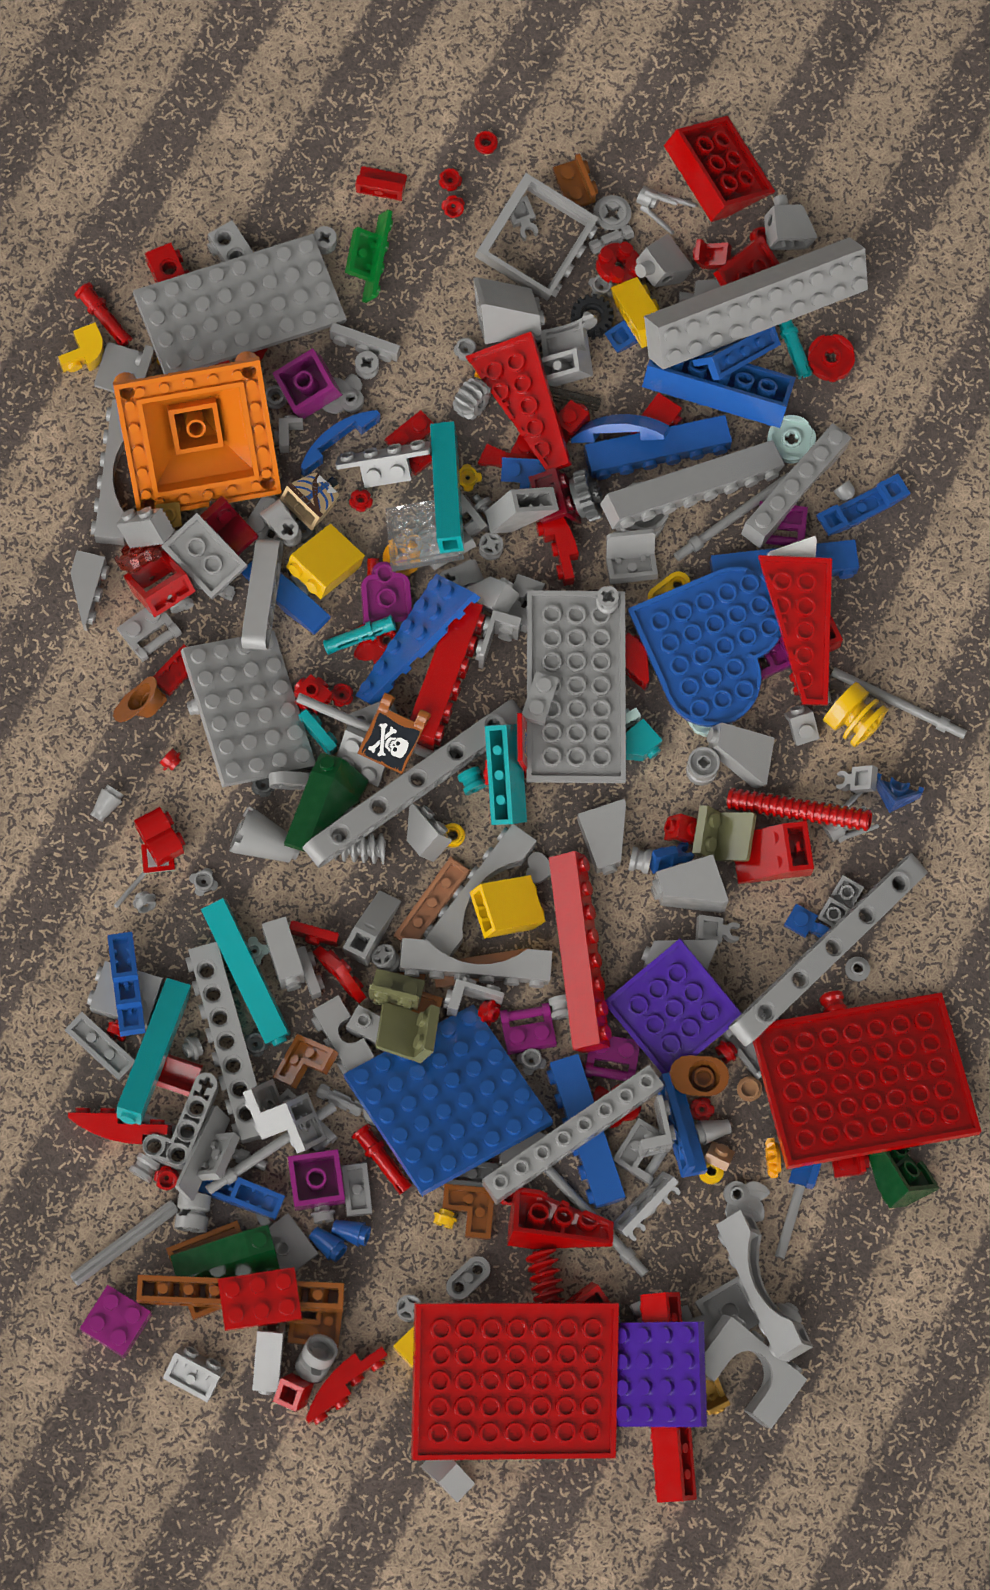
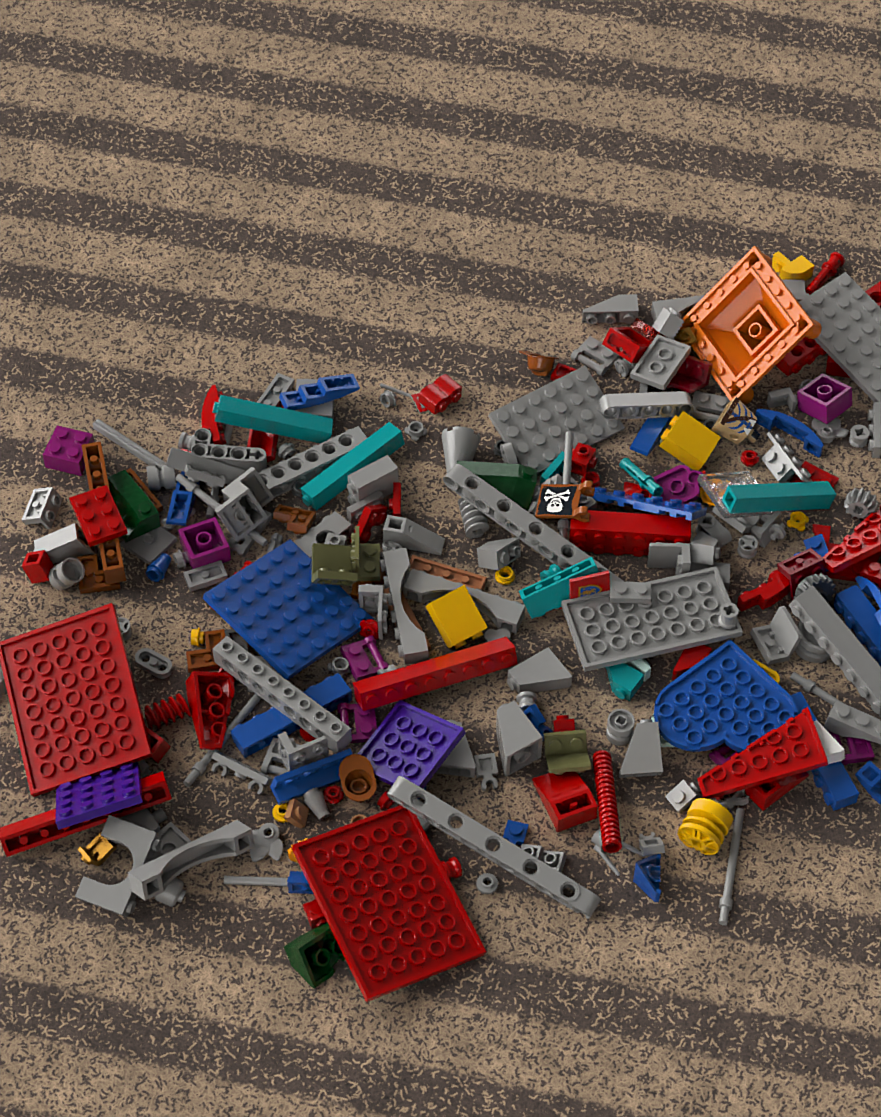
camera: 80 degrees right, 20 degrees down
(106, 803) = (458, 360): light grey cone -> none
(170, 760) = (501, 389): red plate -> none
(281, 521) = (708, 407): light grey piece -> none
(335, 1391) = (48, 595): red slope -> none
(352, 1231) = (172, 583): blue cone -> none
(520, 509) = (781, 545): light grey slope -> none

